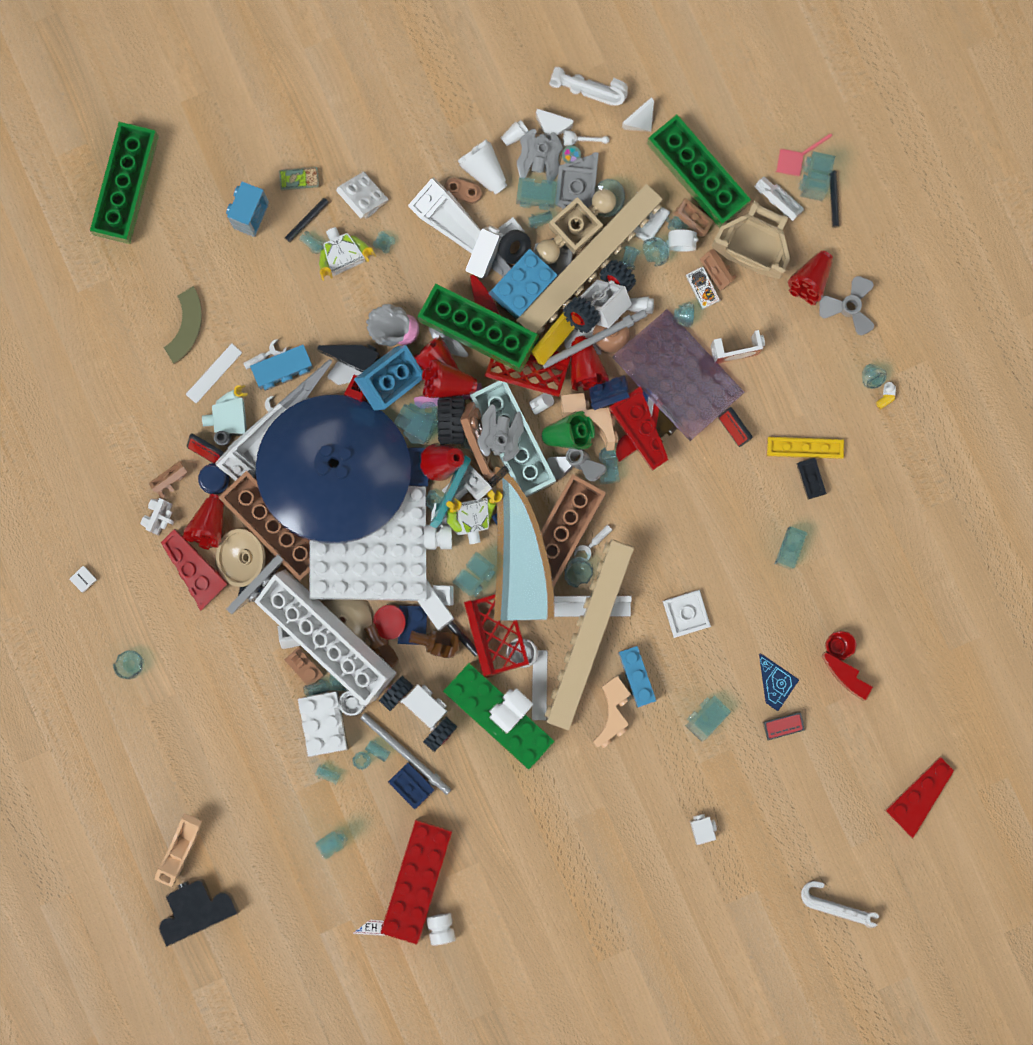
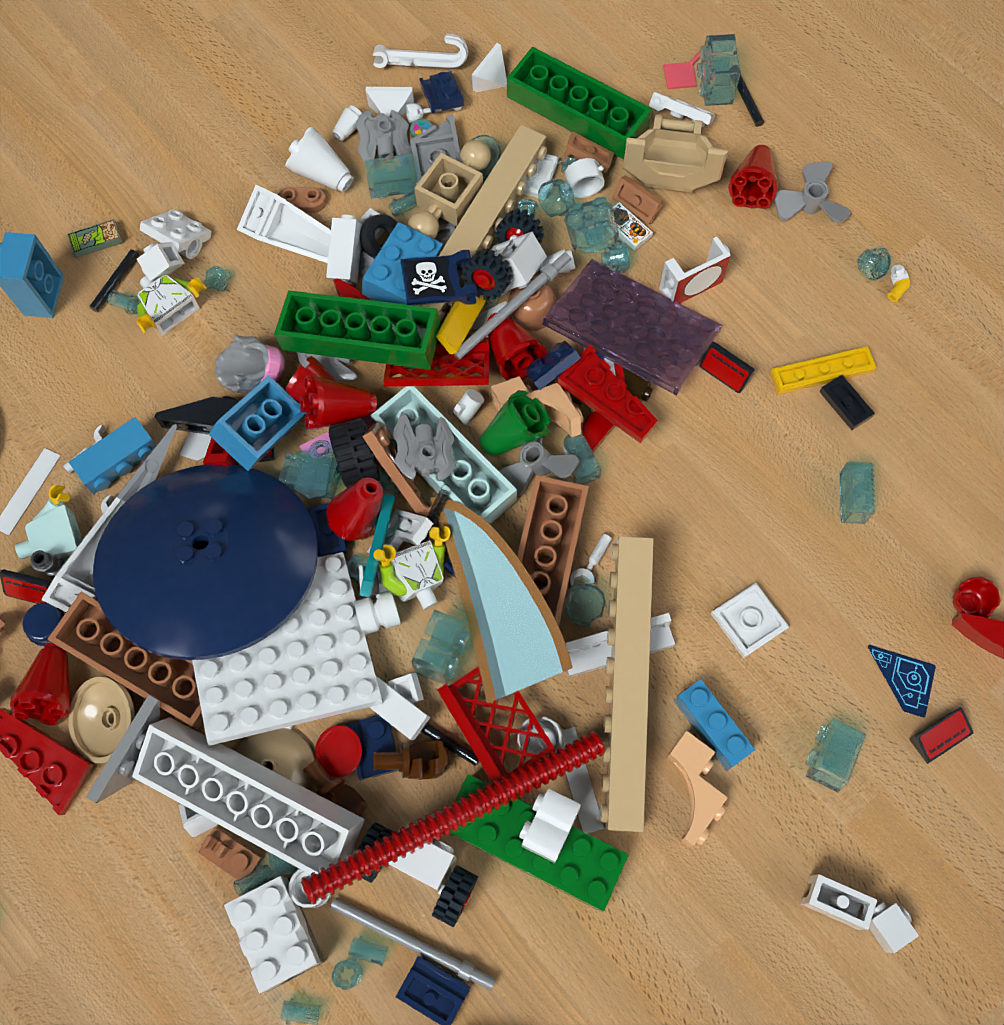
camera: 10 degrees left, 15 degrees down
(346, 222) = (160, 260): none -> white brick
(455, 687) = (451, 817): none -> red piece
(543, 306) = (437, 279): none -> flag
(596, 125) = (442, 91): none -> dark blue plate
(673, 286) = (591, 225): none -> clear light blue brick
(675, 806) = (839, 902): none -> white brick

